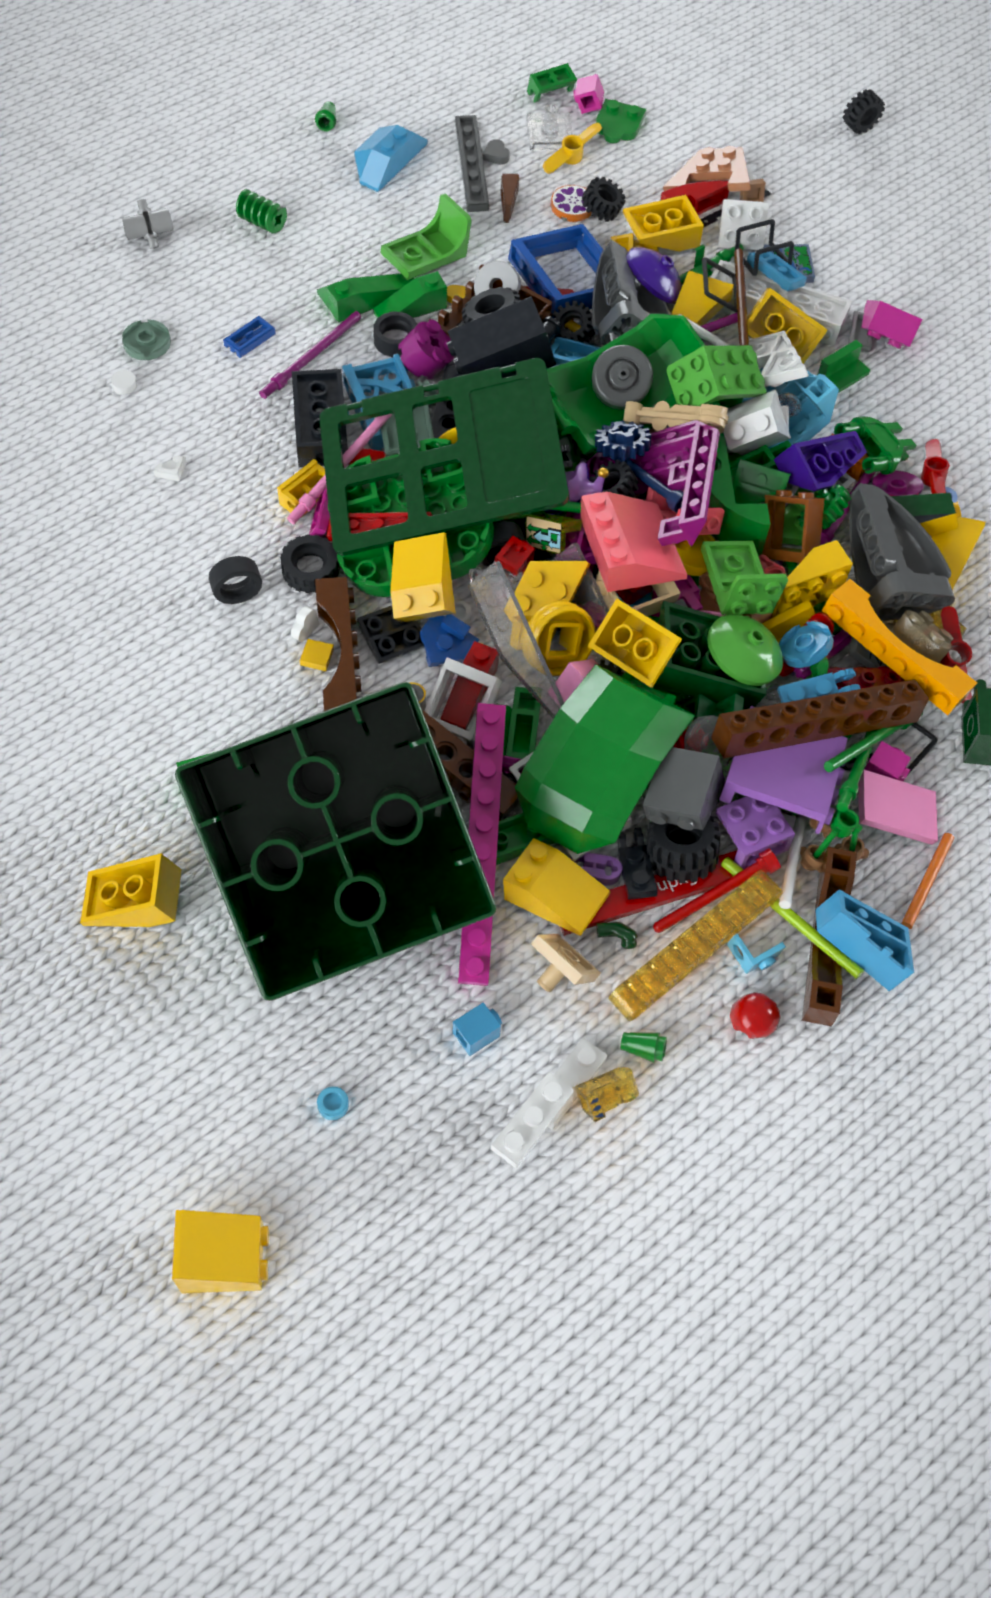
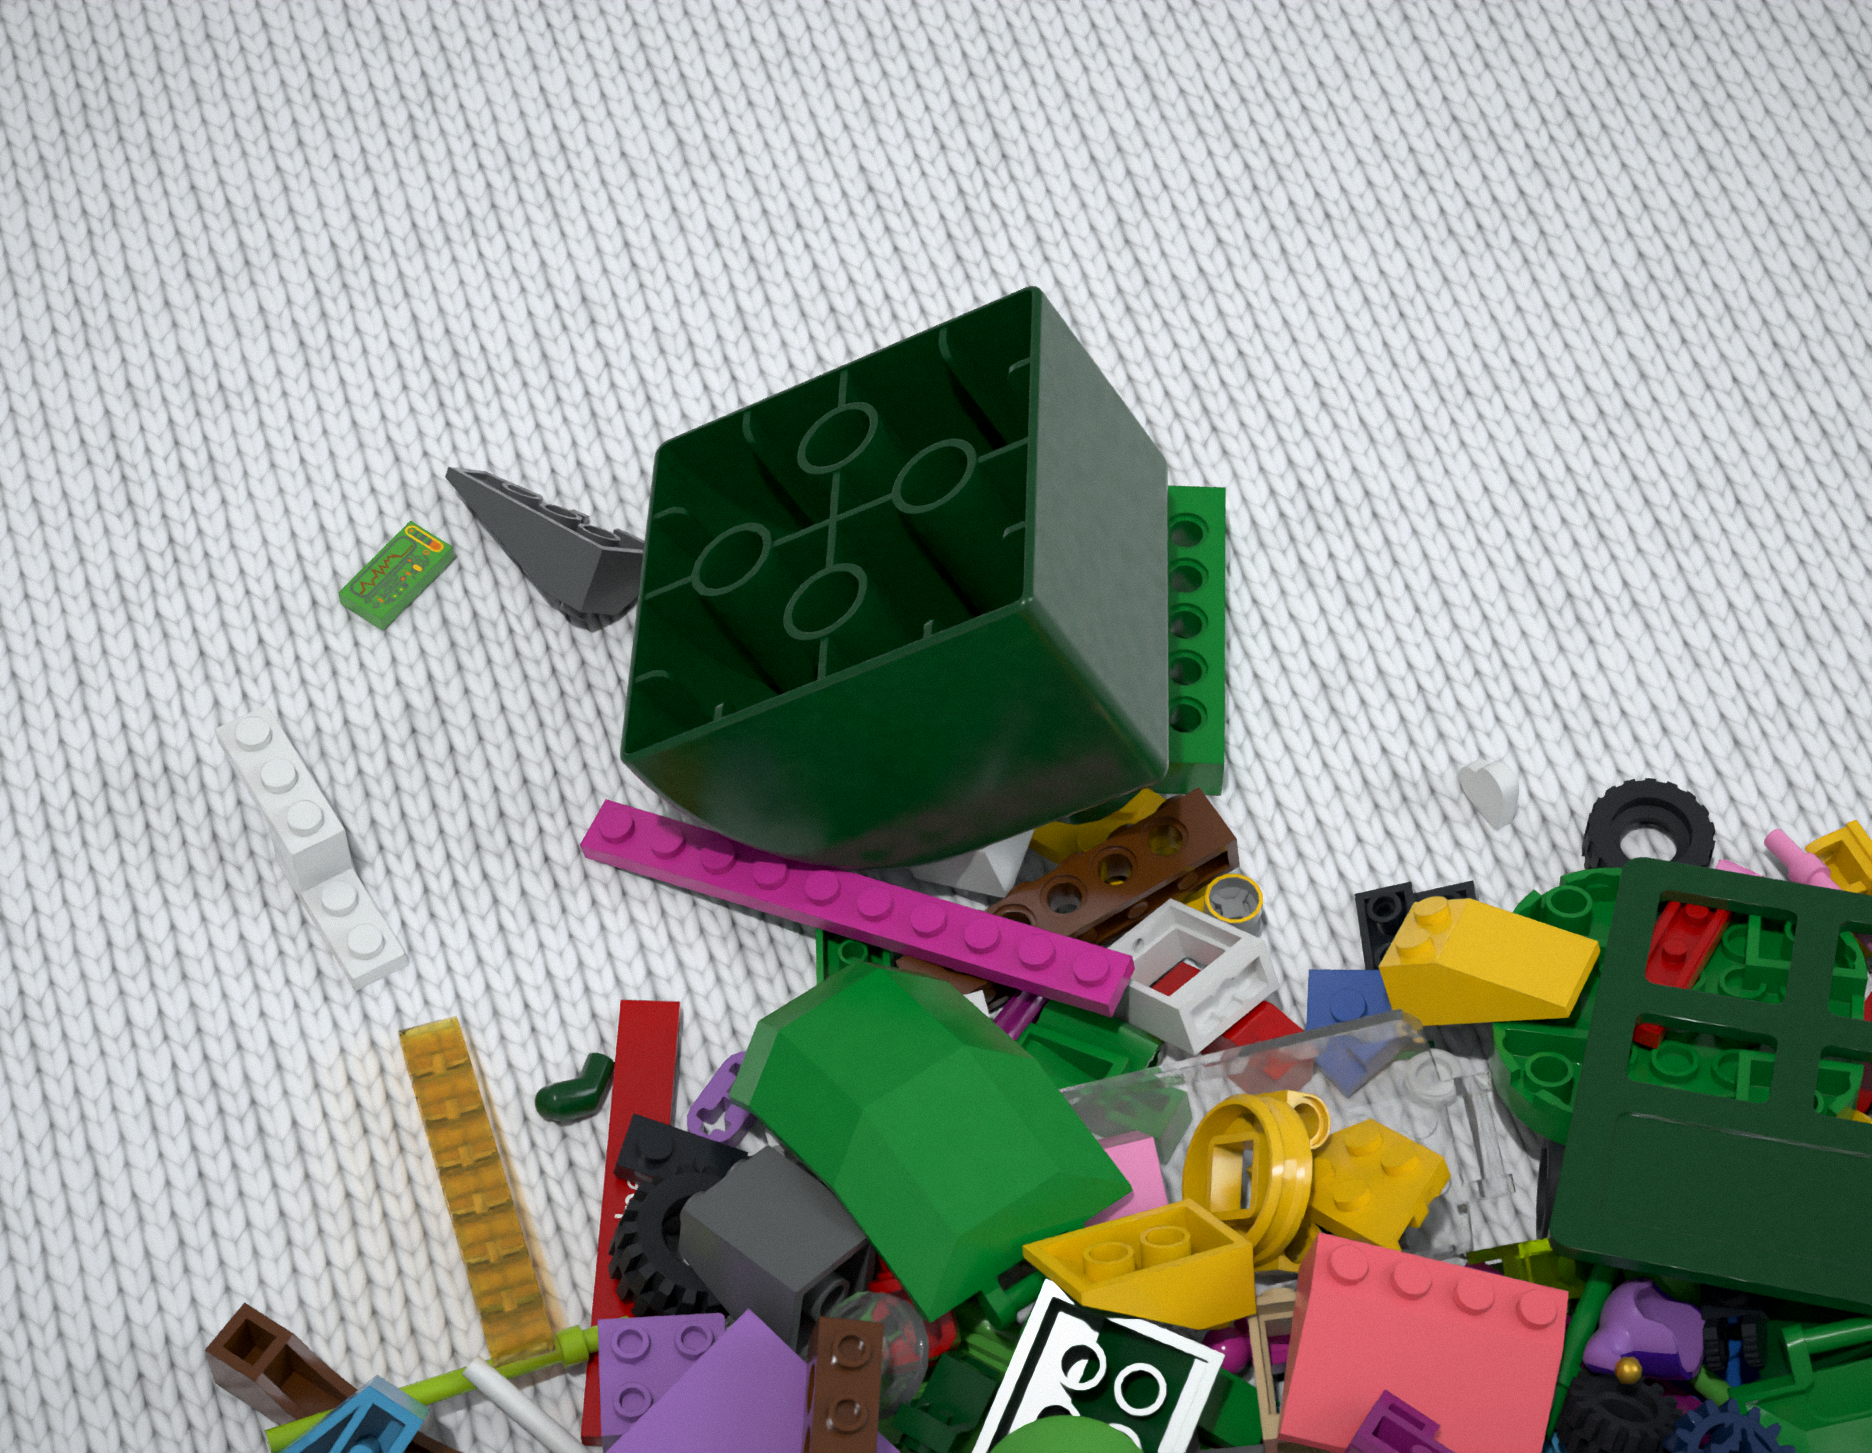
camera: 115 degrees right, 5 degrees down
(219, 1252) = (318, 335): yellow slope -> none
(231, 568) = (1629, 686): black tyre -> none
(315, 1056) = (555, 545): none -> dark grey wedge
(316, 655) = (1414, 797): yellow tile -> none
(332, 1103) = (486, 565): medium azure tile -> none
(333, 608) = (1288, 800): reddish brown arch -> none
(357, 1146) = (396, 575): none -> bright green tile
(477, 1028) = (501, 794): dark azure brick -> none
(515, 555) = (1504, 1181): red bracket -> none
(554, 887) = (701, 997): yellow slope -> none
(563, 961) = (552, 959): tan tile -> none
(607, 1092) = (283, 940): clear yellow leg -> none
(644, 1045) = (338, 1045): green cone -> none
(749, 963) = (403, 1281): medium azure bracket -> none
(755, 1015) = (302, 1255): red hair -> none
(766, 861) = (570, 1364): red piece -> none

